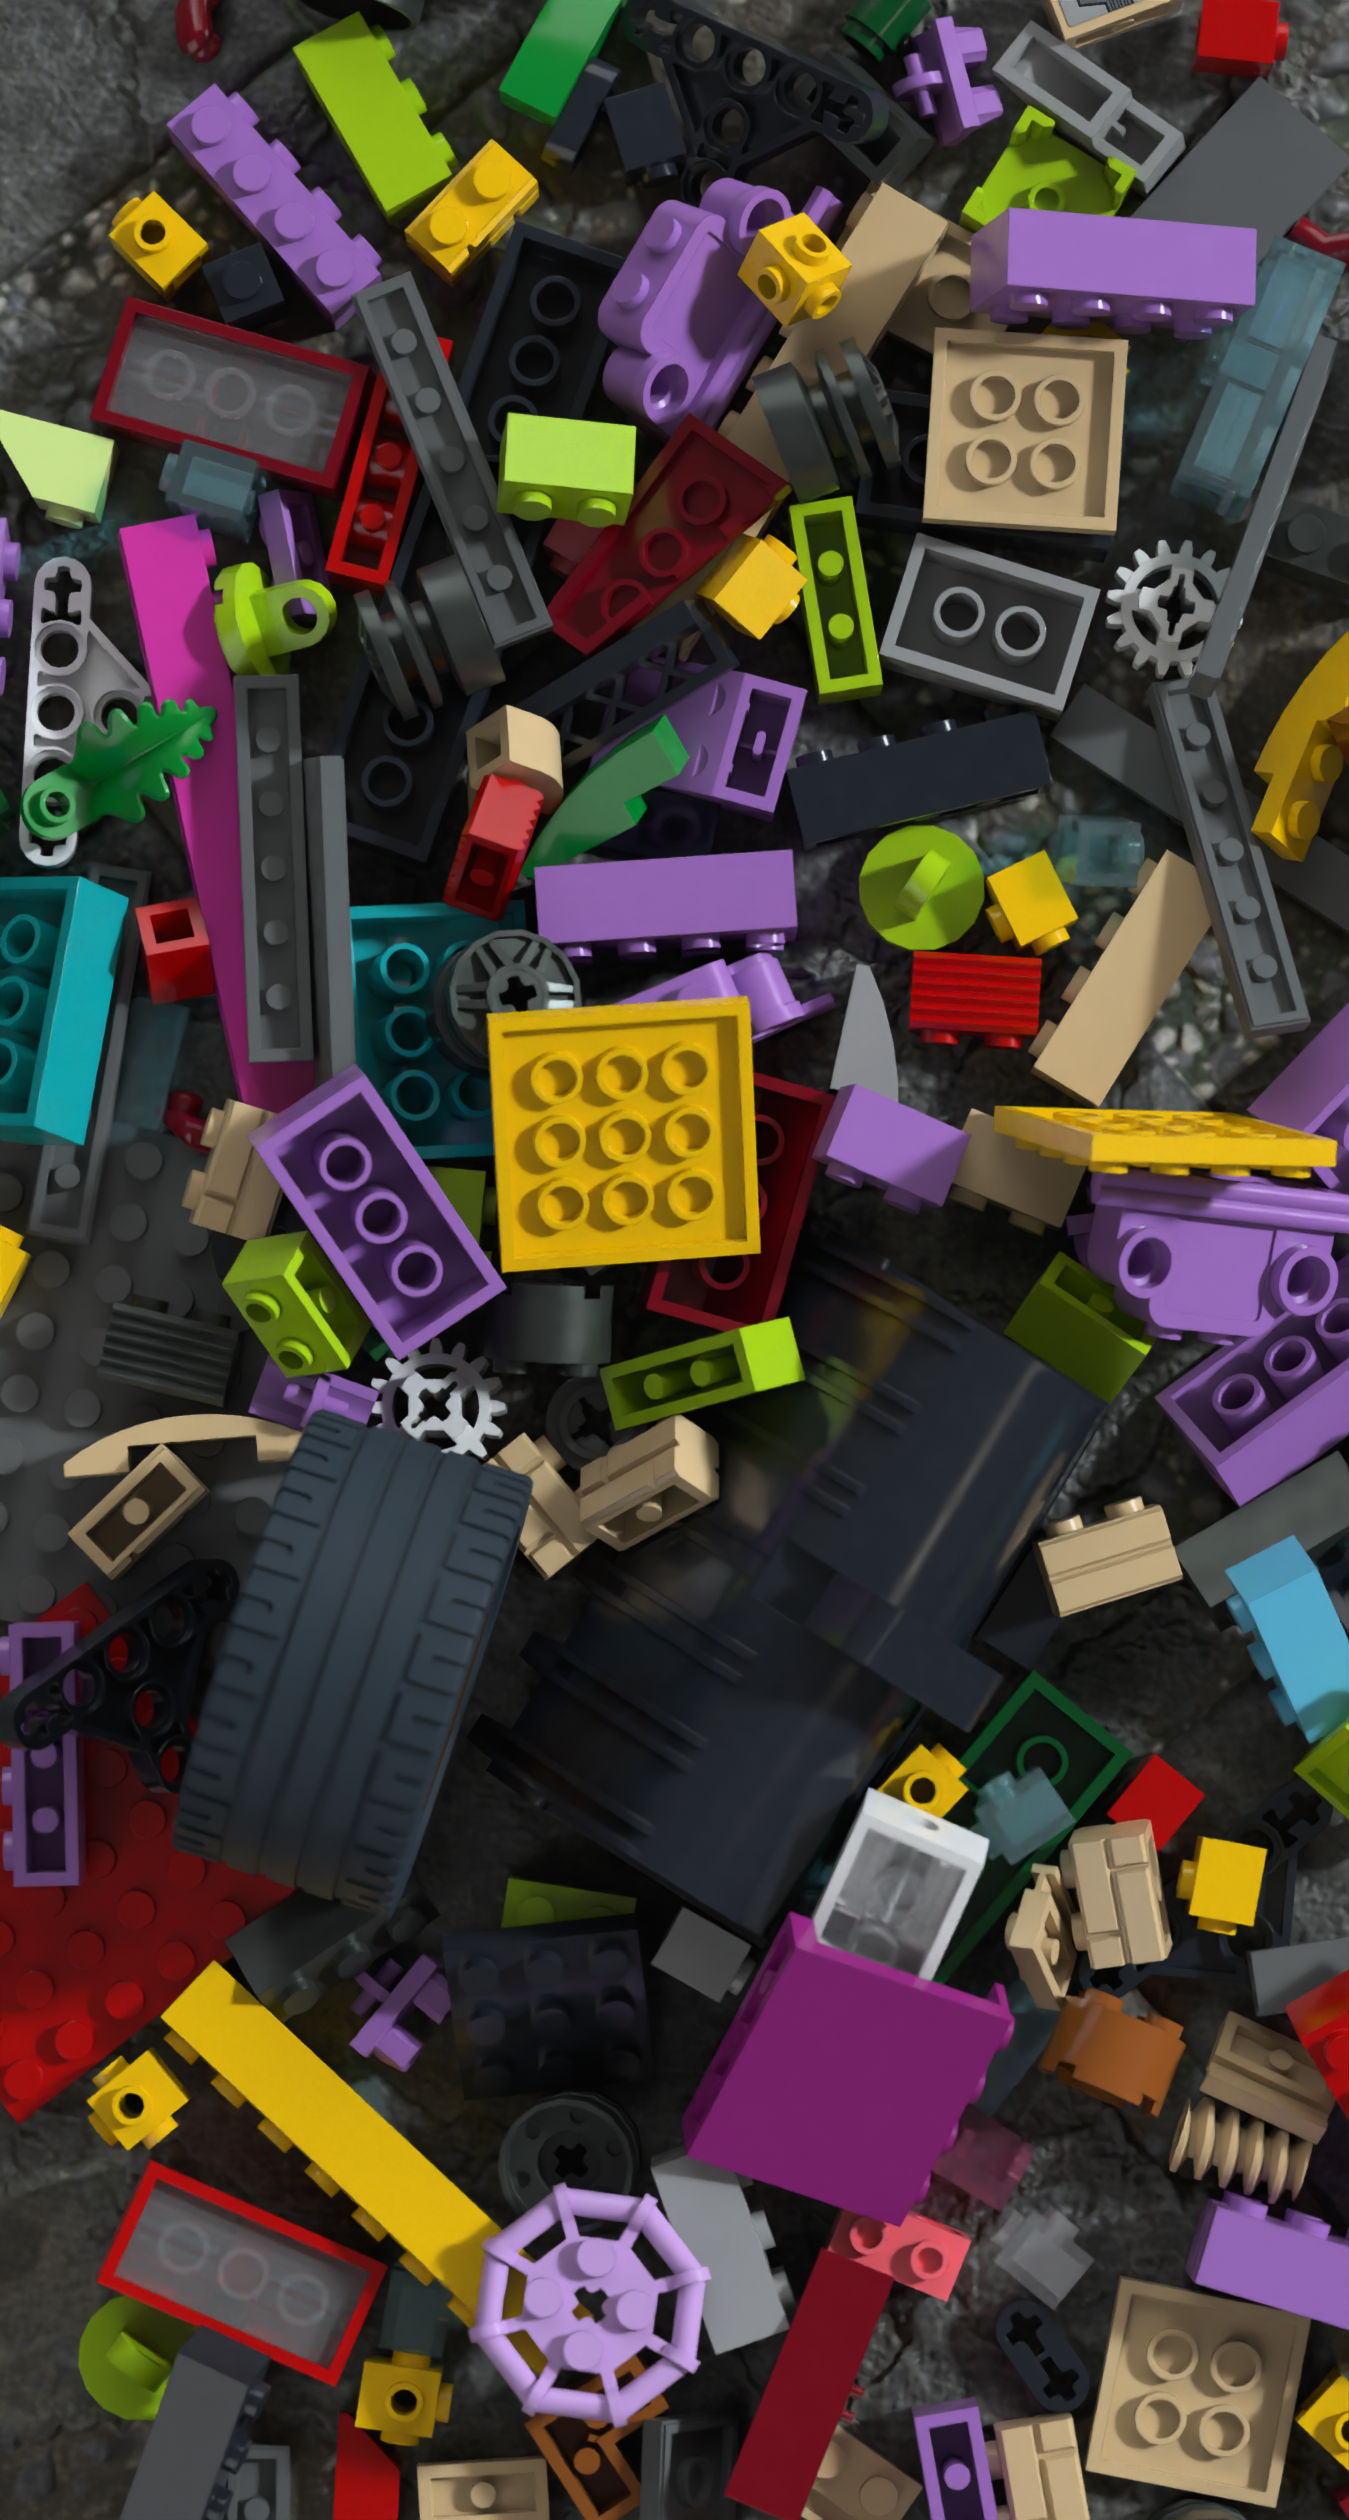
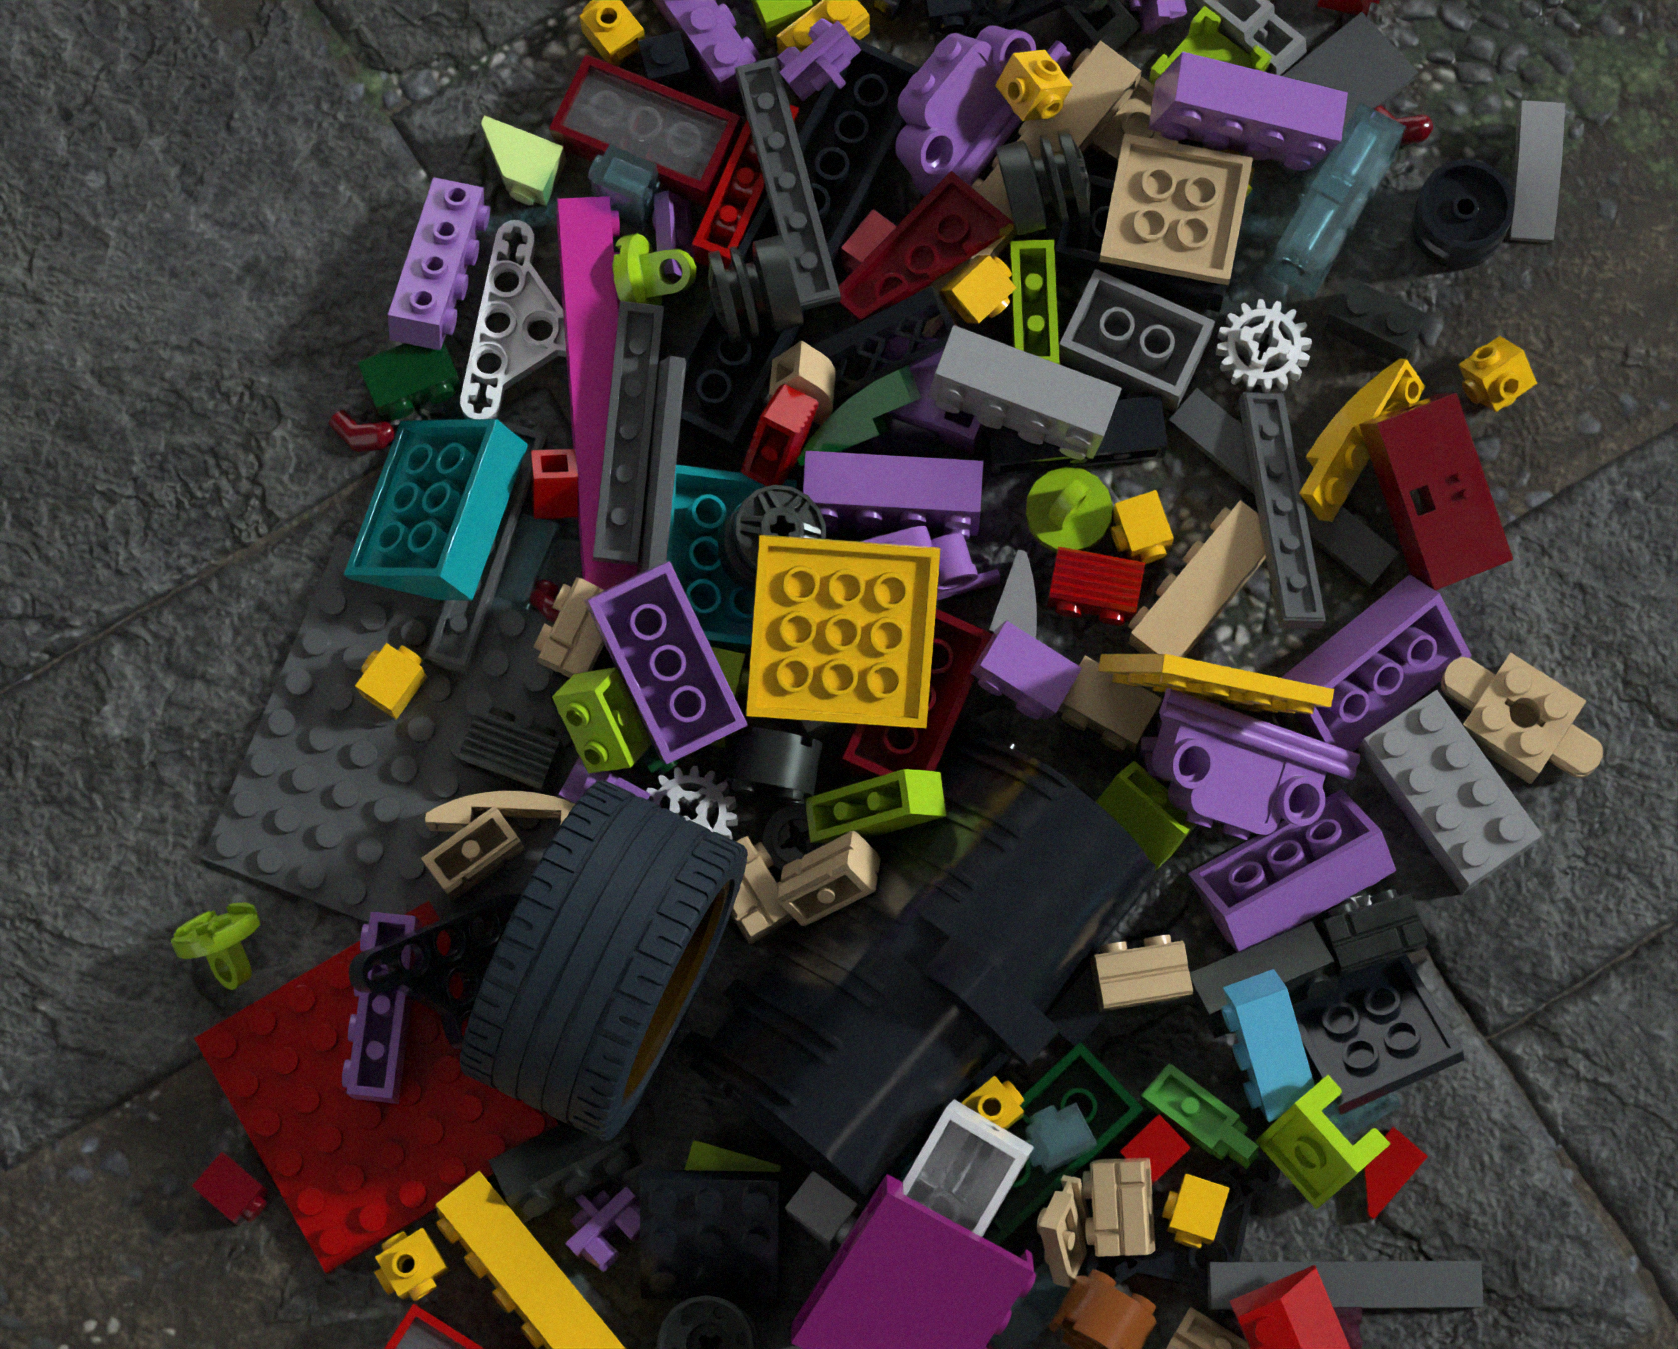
camera: 10 degrees right, 10 degrees down
(118, 767) = (532, 355): green plant -> none
(477, 271) = (820, 61): none -> medium lavender hips
(566, 470) = (863, 193): lime brick -> none
(838, 745) = (1023, 393): none -> light grey brick
(1099, 851) = (1194, 496): clear light blue brick -> none
(1211, 1745) = (1200, 1116): none -> bright green hinge
(1262, 519) = (1330, 290): dark grey tile -> none

